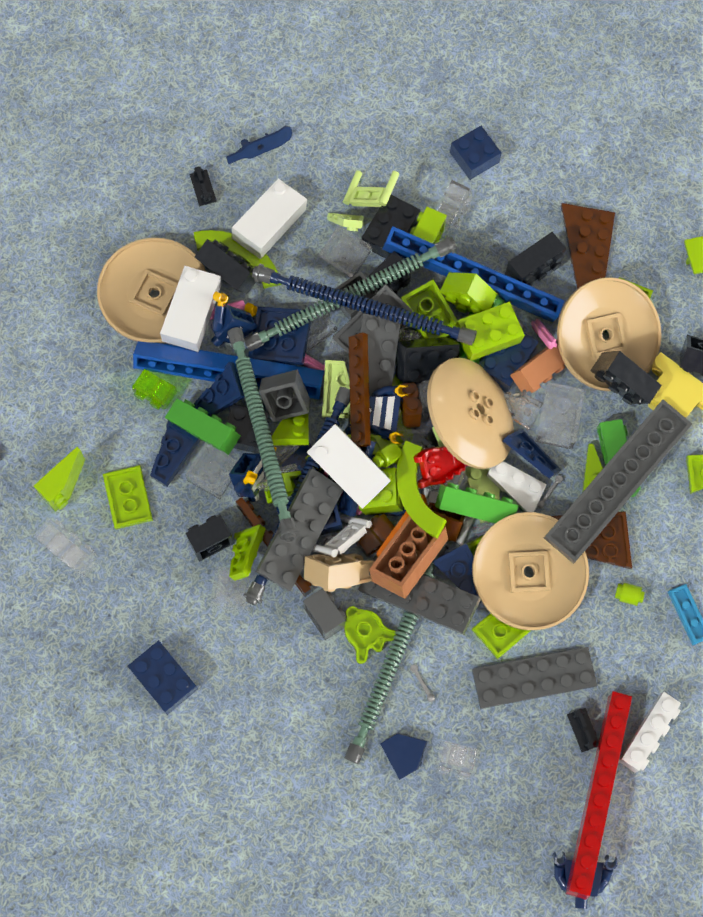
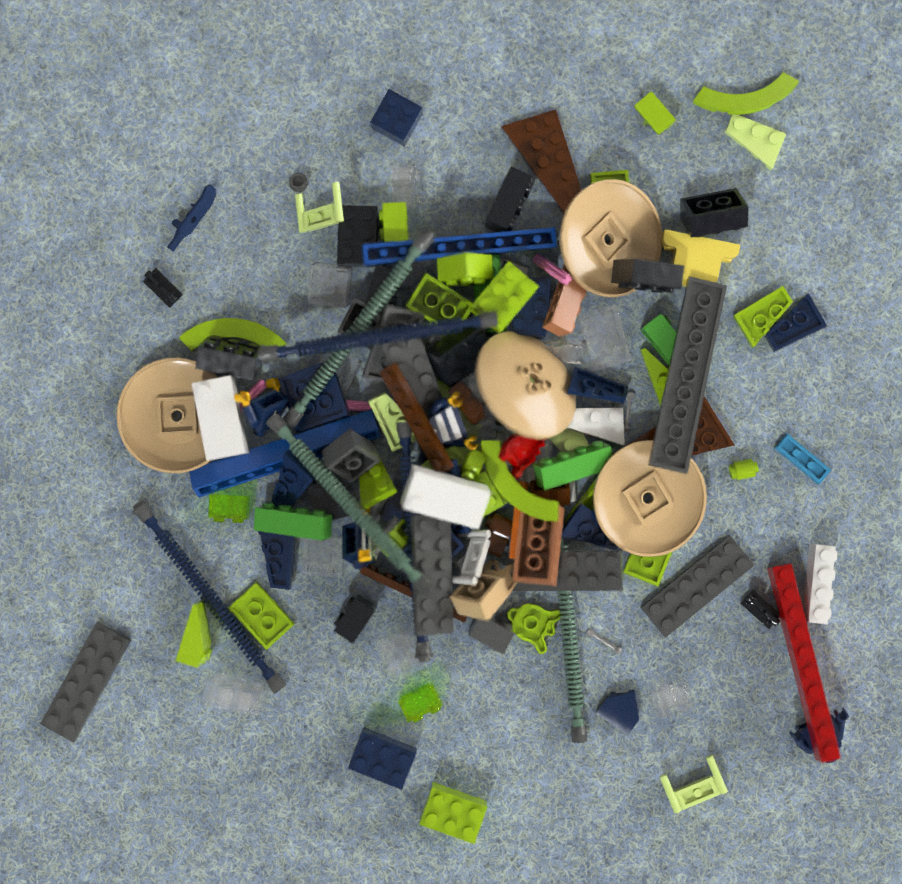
camera: 25 degrees left, 15 degrees up
(92, 457) = (146, 515): none -> dark blue hose
(198, 762) = (453, 813): none -> lime brick
(225, 646) = (420, 702): none -> clear neon green brick
(245, 551) = (395, 617): lime wing -> none
(269, 218) = (241, 288): white brick -> none
(352, 222) = (315, 253): yellowish green wing -> none
(364, 162) = (298, 182): none -> dark grey plate
(436, 868) = (696, 791): none -> yellowish green plate
(481, 528) = (588, 481): clear tile -> none

